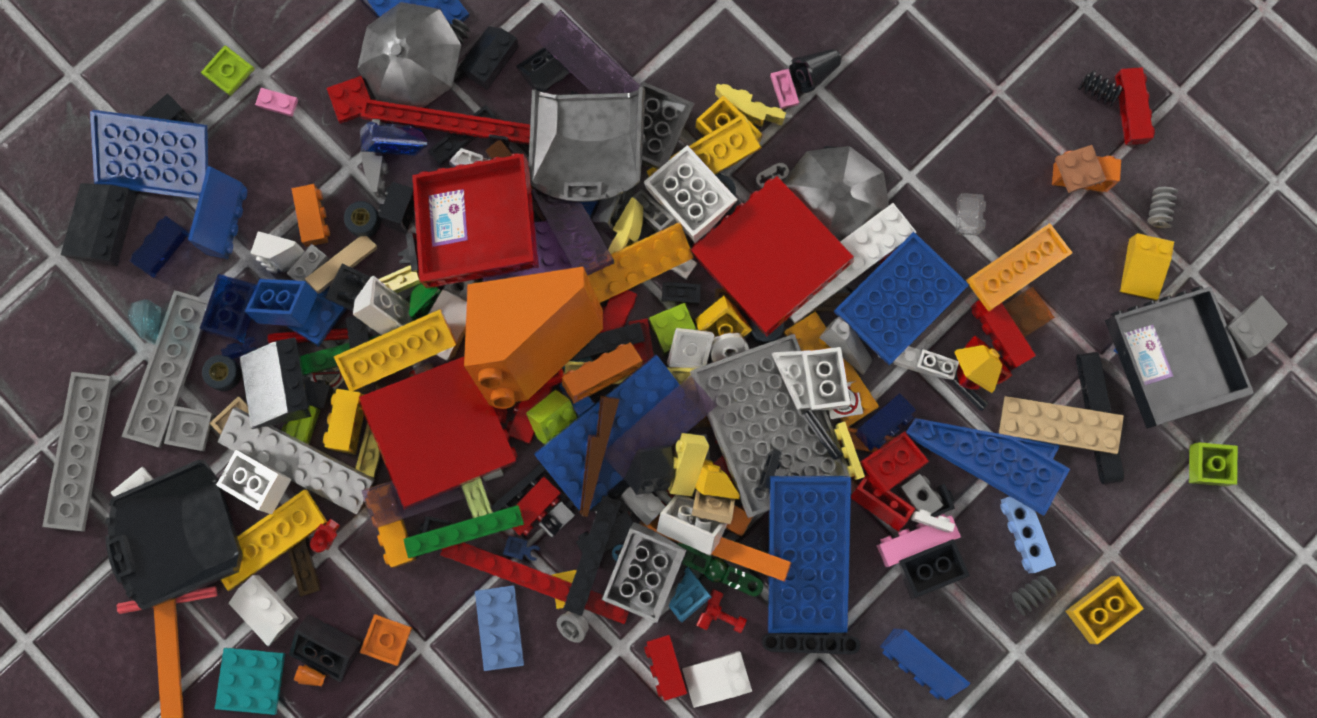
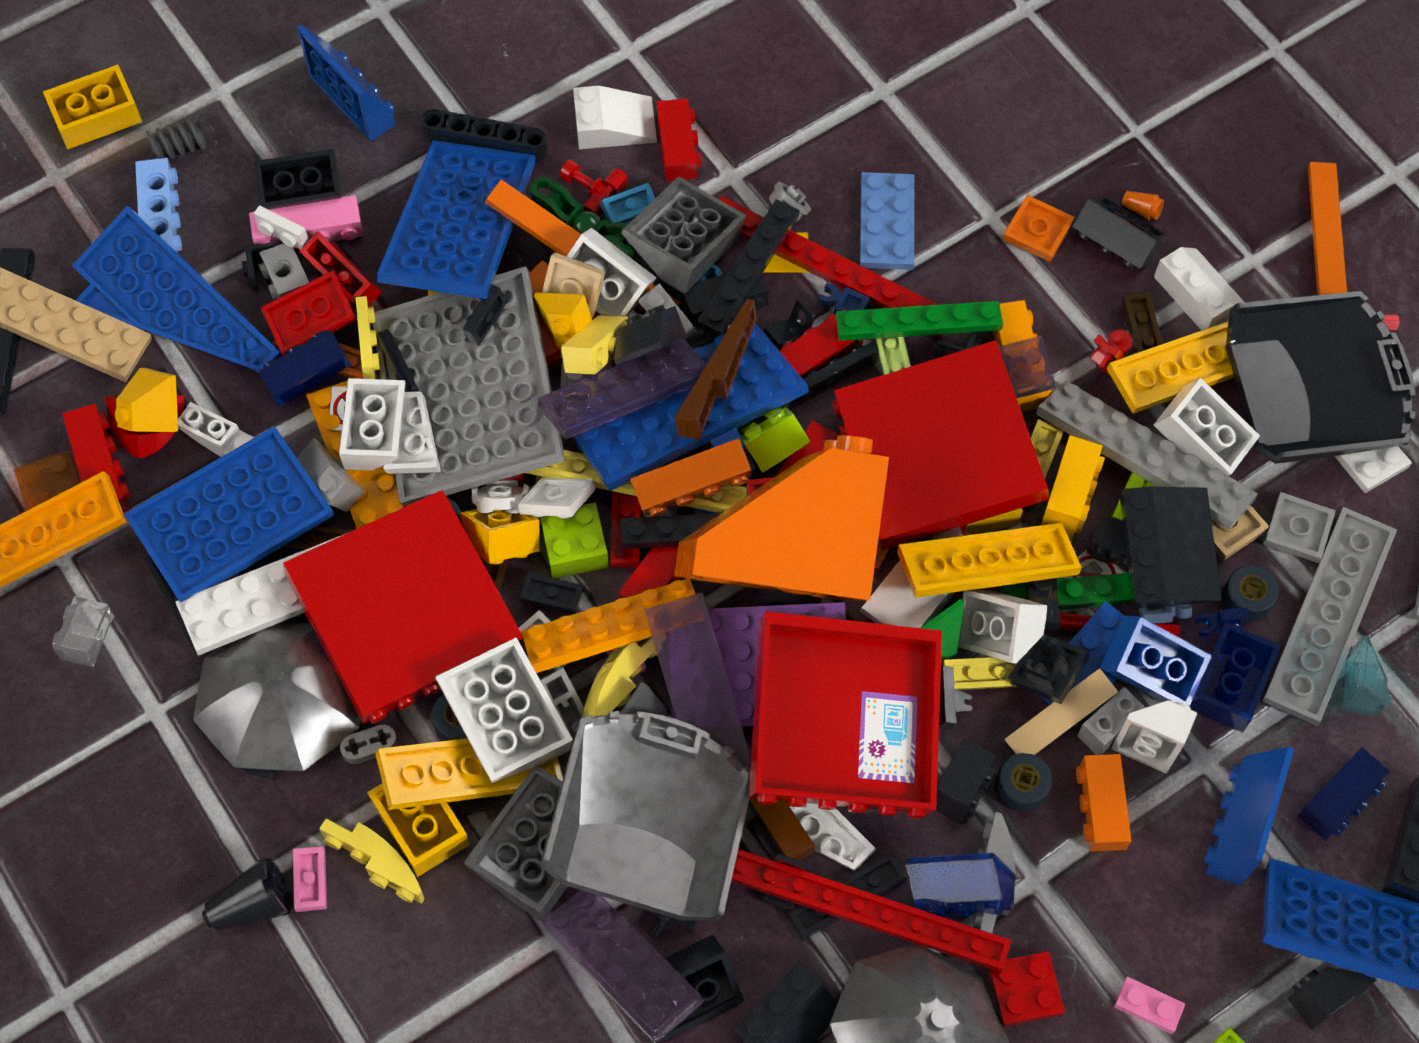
camera: 165 degrees left, 15 degrees down
(250, 681) = (1221, 215): teal plate -> none

